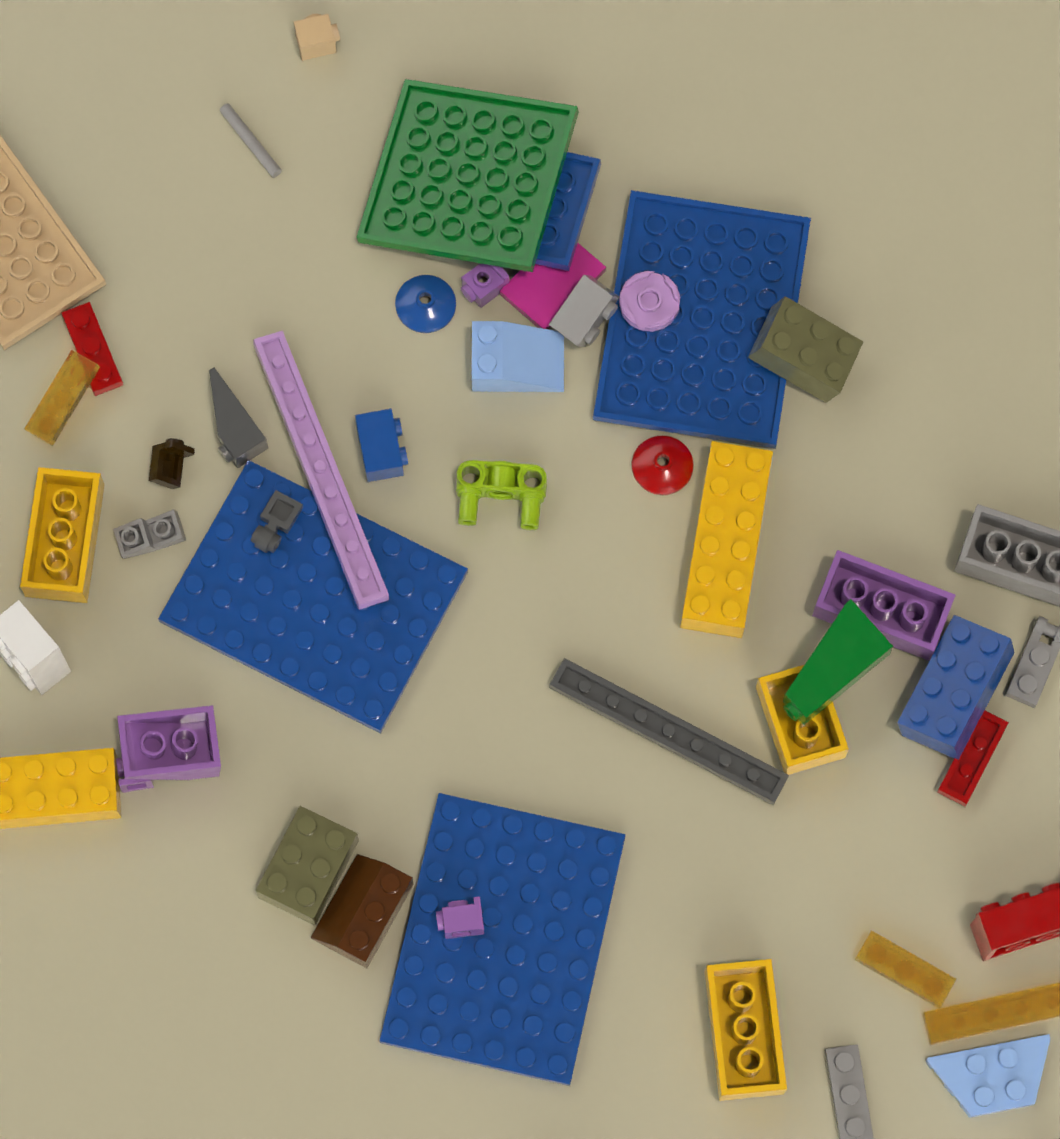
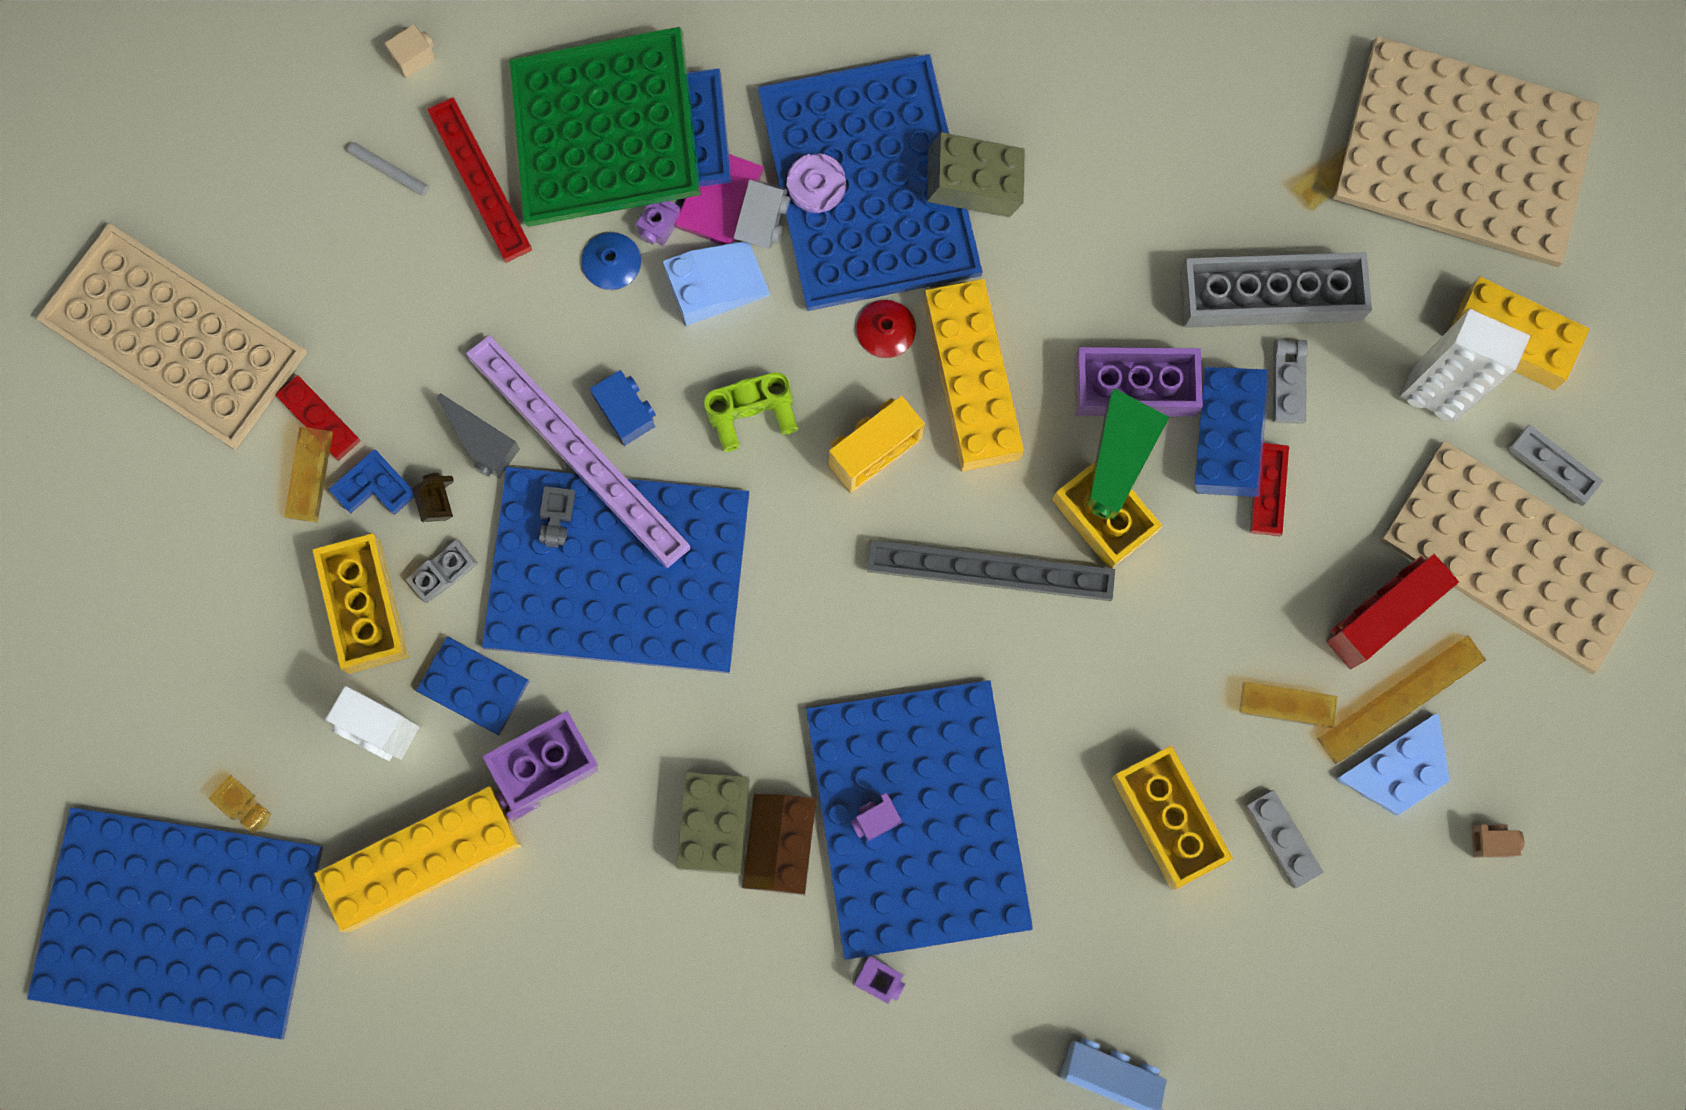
camera: 25 degrees left, 5 degrees up
(117, 422) = (372, 477): none -> blue plate
(135, 652) = (473, 686): none -> blue plate
(331, 182) = (479, 180): none -> red plate
(400, 1061) = (867, 976): none -> medium lavender brick
(604, 568) = (875, 443): none -> yellow brick

